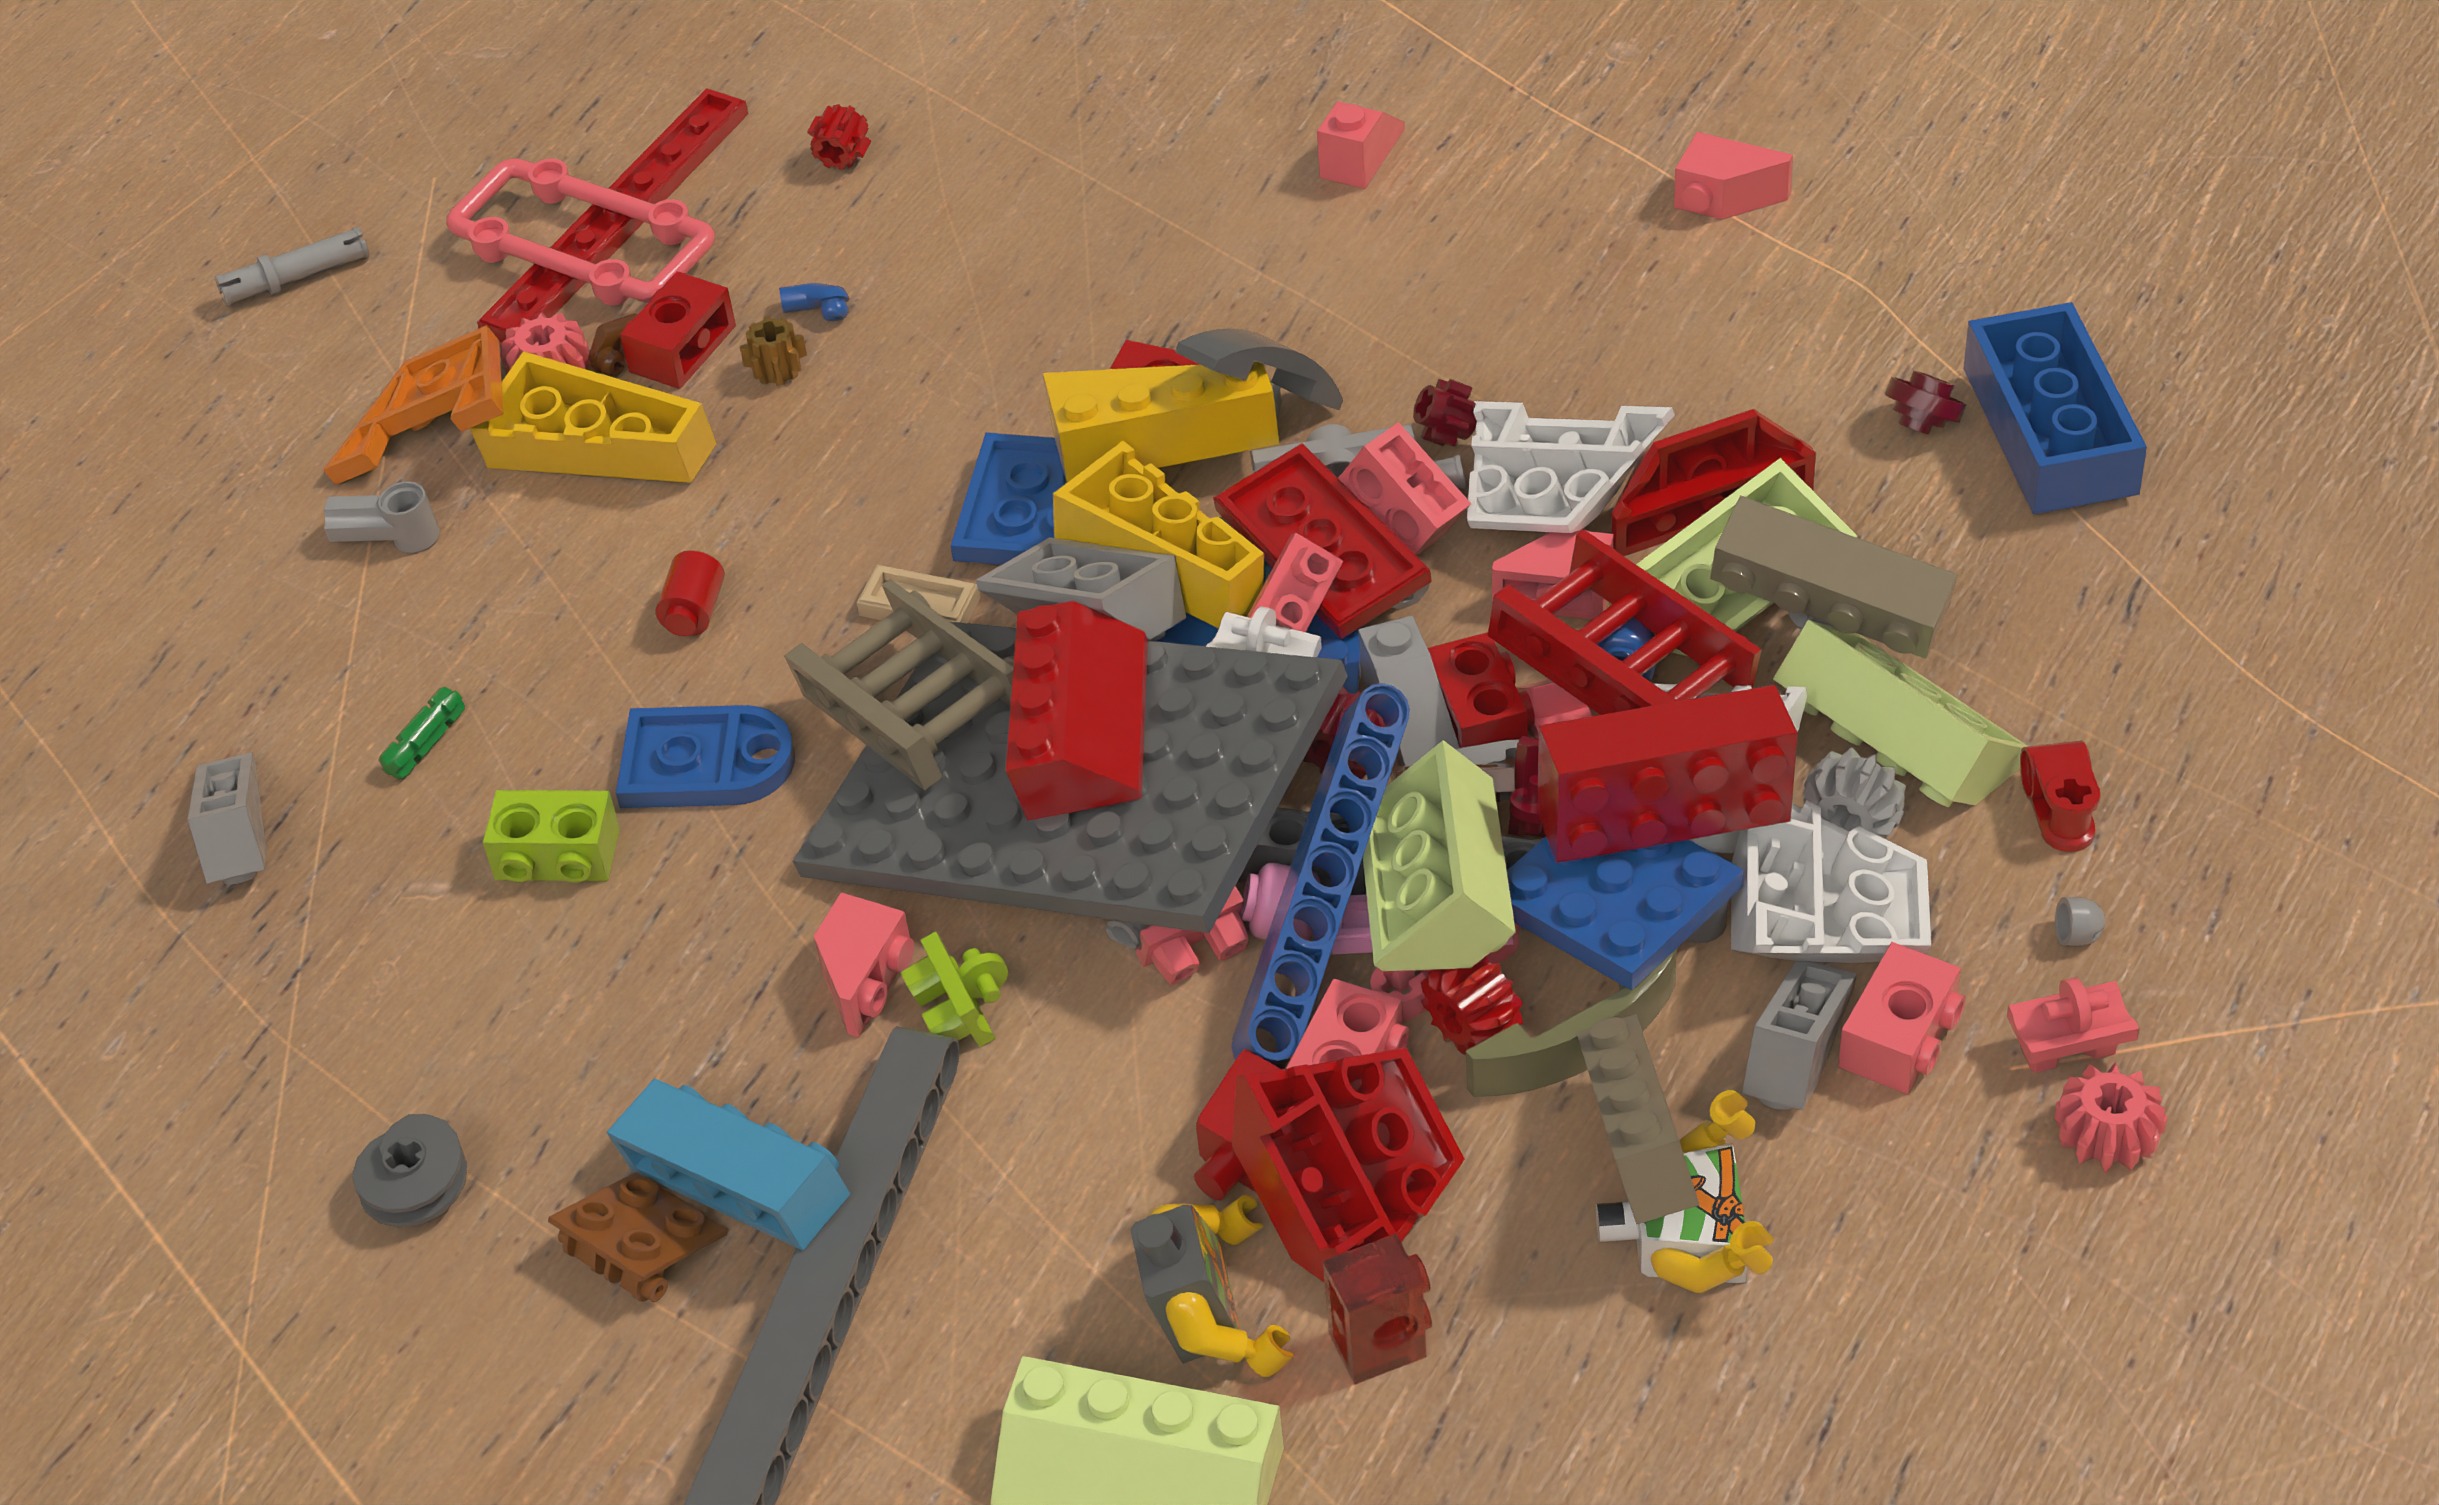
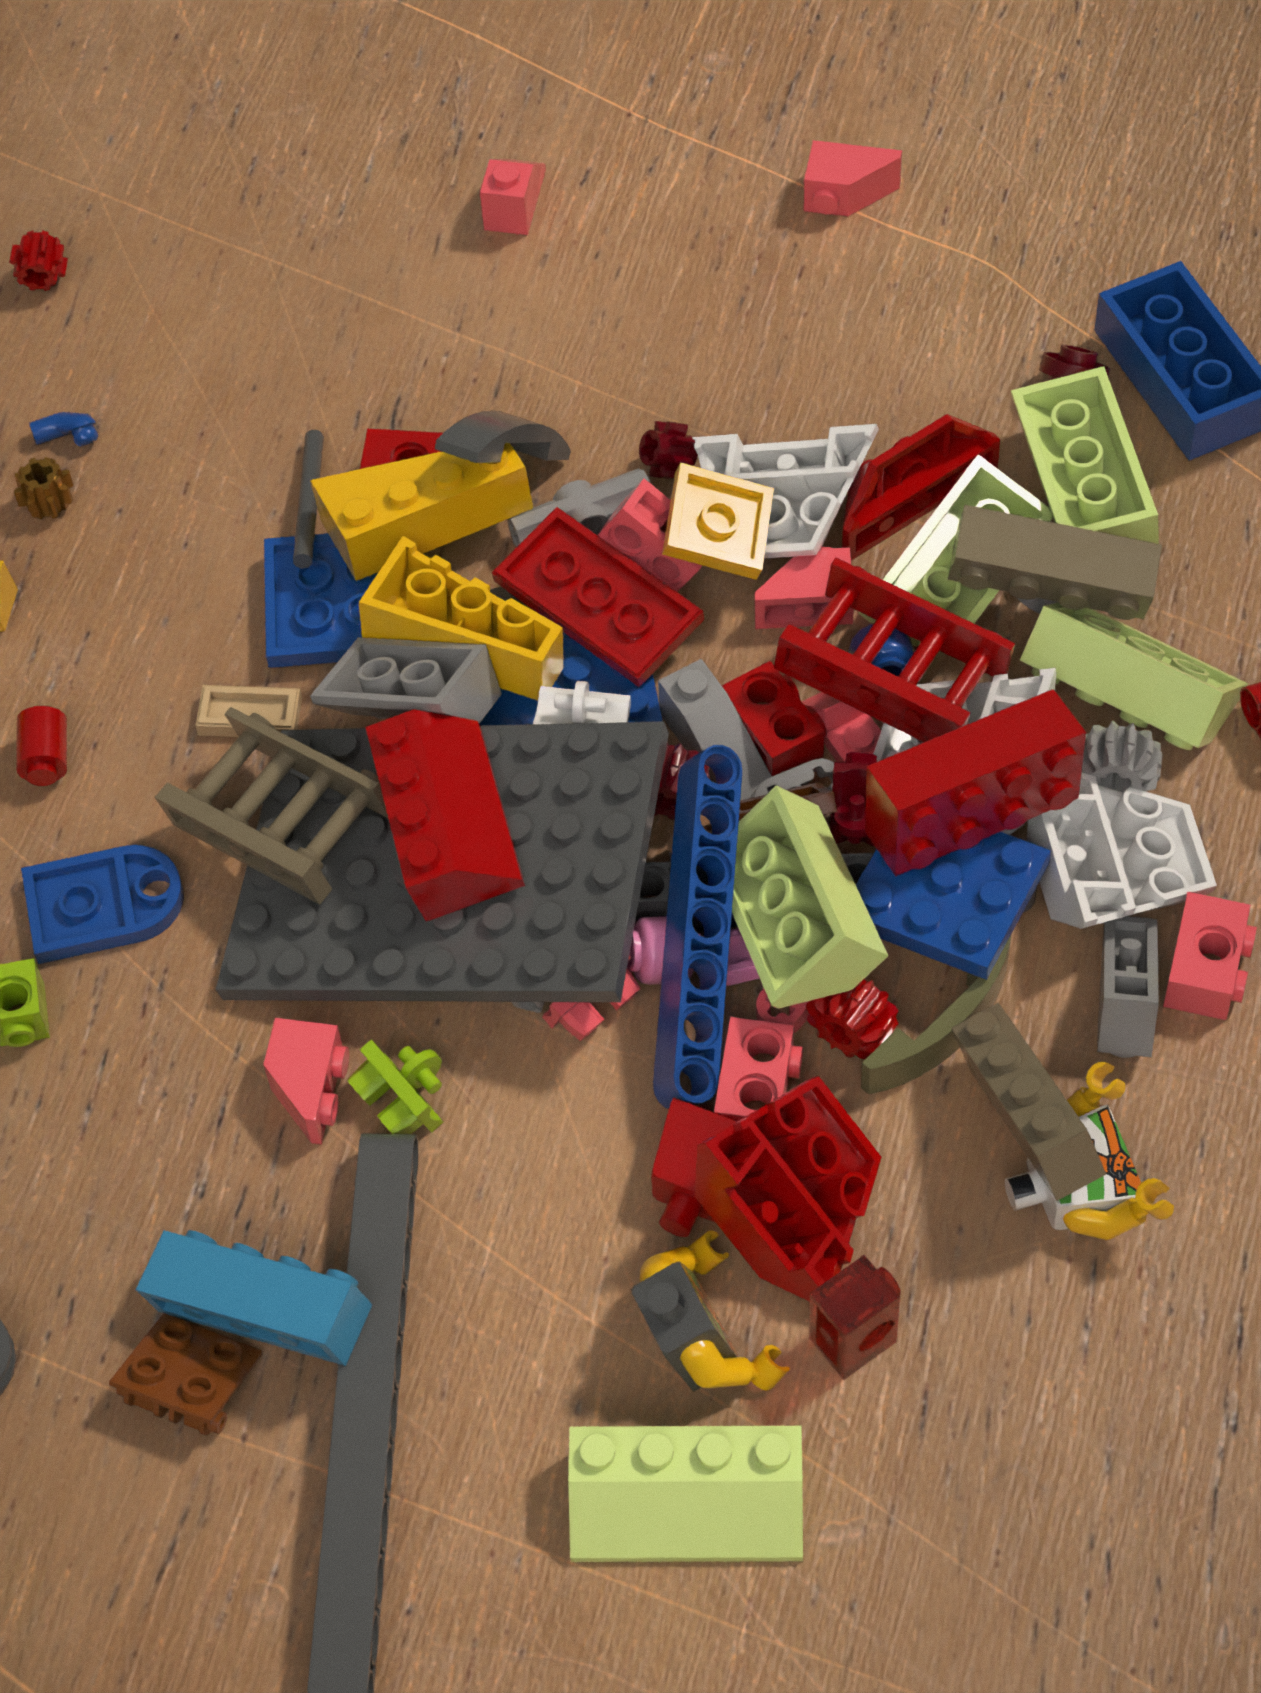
camera: 15 degrees left, 10 degrees up
(1039, 412) = (307, 505): none -> dark grey bar
(1297, 583) = (594, 649): coral hips -> none
(1468, 478) = (718, 521): none -> plate
(1907, 480) = (1086, 456): none -> yellowish green slope

